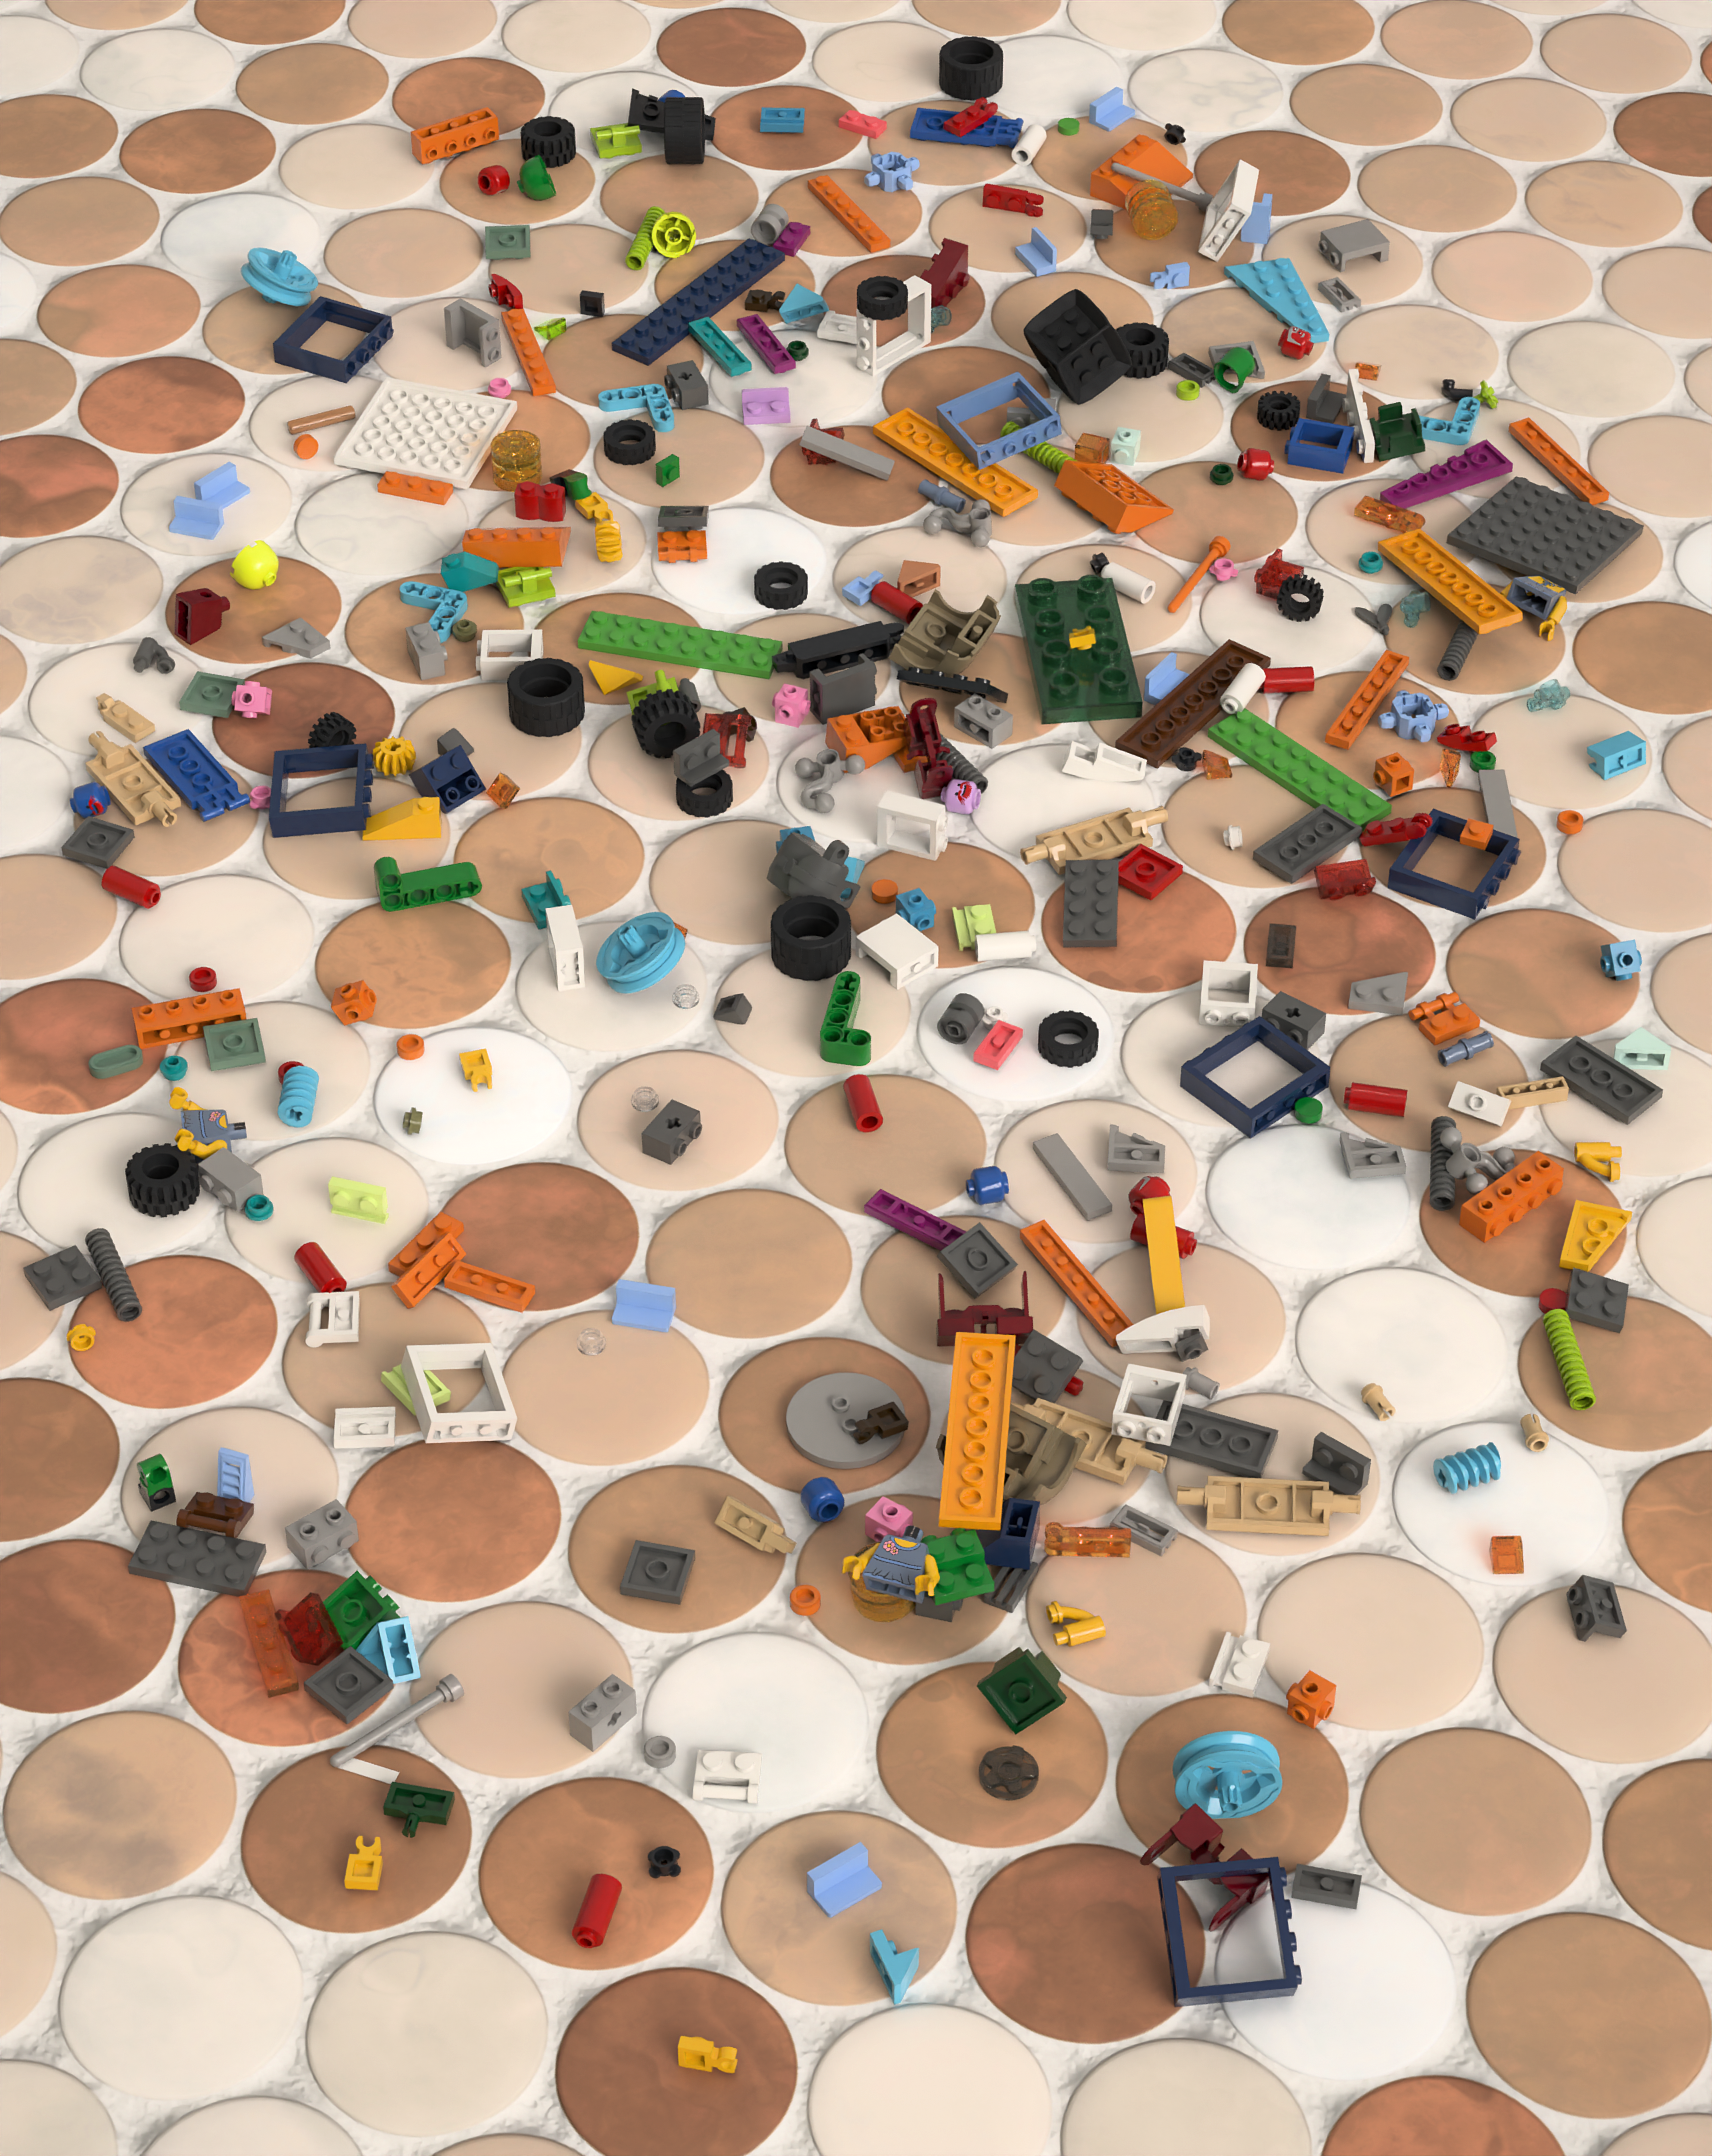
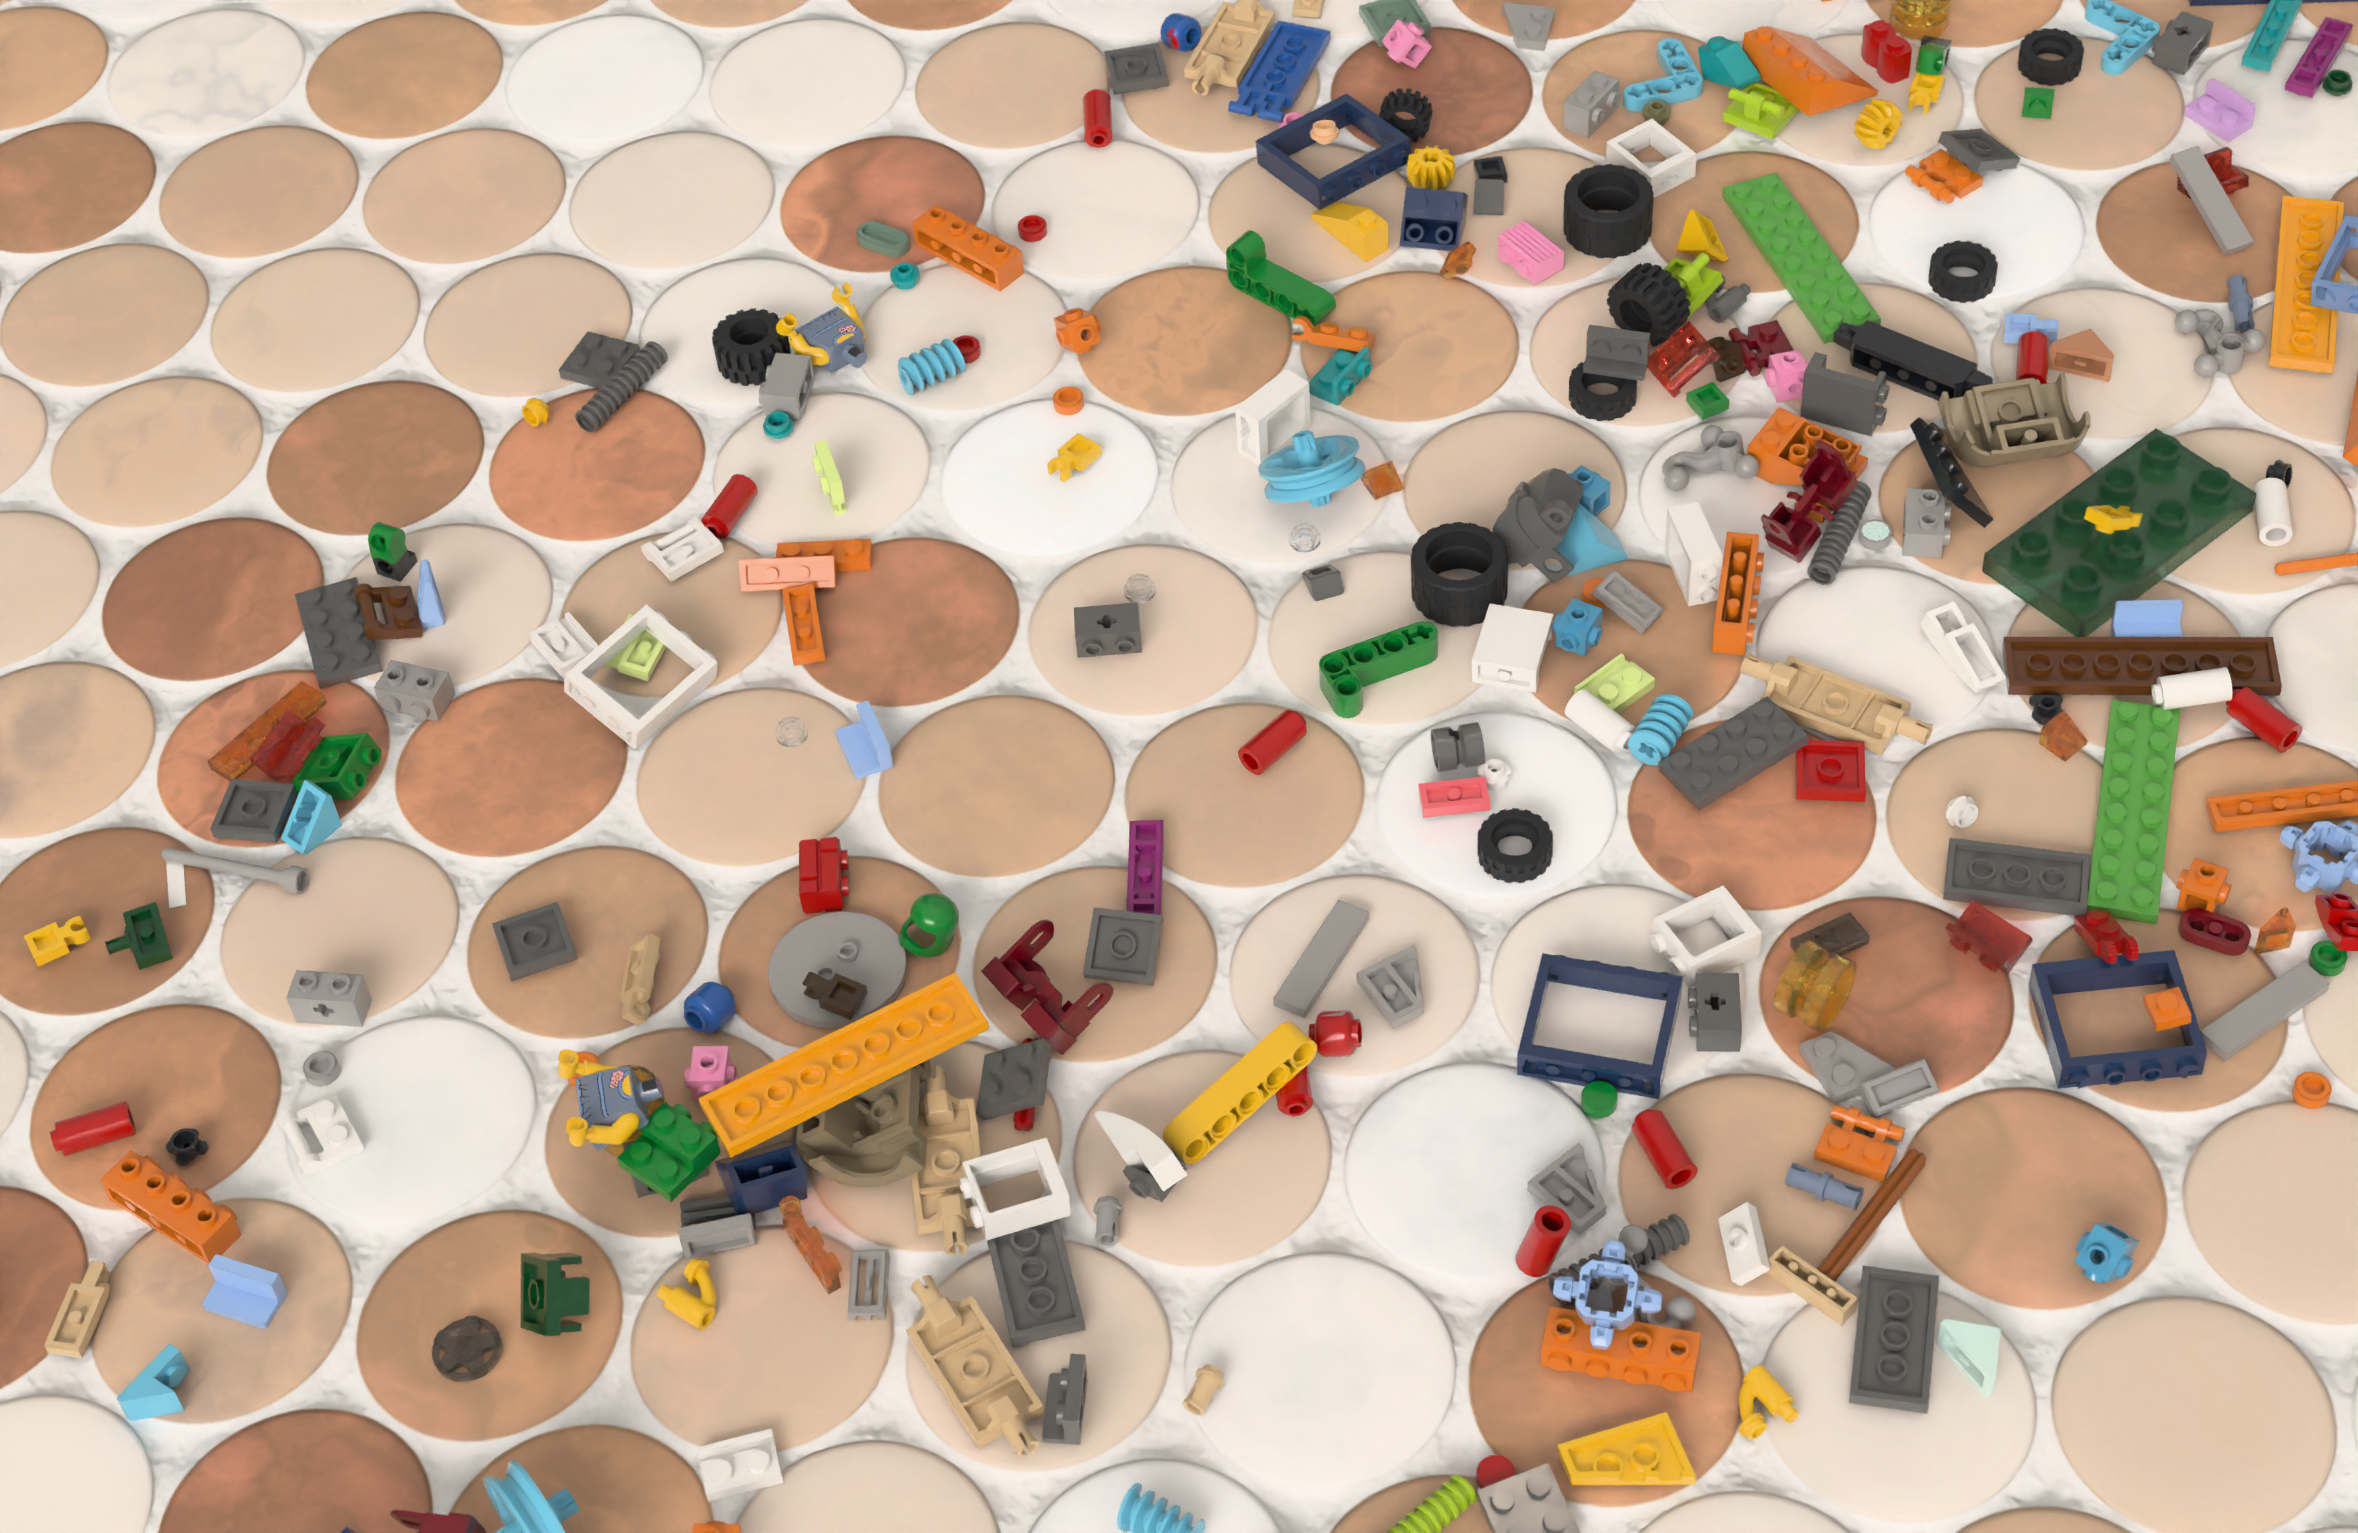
camera: 60 degrees right, 5 degrees up
(234, 1044) = (963, 292): sand green plate -> none
(311, 777) = (1324, 131): none -> light nougat plate
(412, 1121) = (967, 455): olive plate -> none
(425, 733) = (1490, 168): none -> black tile
(506, 885) = (1330, 335): none -> orange plate
(536, 754) = (1530, 252): none -> bright pink brick
(722, 1891) = (171, 1206): none -> orange brick
(753, 1385) = (822, 876): none -> red brick
(756, 702) = (1765, 339): none -> dark red plate
(769, 752) = (1707, 400): none -> green plate
(776, 1989) = (79, 1313): none -> tan hinge
(863, 1336) = (935, 915): none -> green helmet
(909, 879) = (1628, 602): none -> light grey plate
(961, 796) = (1787, 568): lavender head -> none
(967, 747) = (1875, 534): none -> tile
(970, 831) = (1735, 594): none -> orange brick
(987, 1185) = (1239, 897): blue head -> none
(1036, 1586) = (717, 1236): none -> light grey tile
(1040, 921) = (1660, 729): none -> medium azure piece
(1075, 1280) = (1169, 1040): orange plate -> none
(1322, 963) = (1815, 986): none -> clear yellow wheel
(1411, 1181) = (1543, 1241): none -> red brick
(1421, 978) = (1898, 1088): none -> light grey tile
(1424, 790) = (2214, 931): none -> dark red plate
(1501, 1039) = (1872, 1214): none -> dark orange axle
(1505, 1155) = (1611, 1267): none -> light blue piece

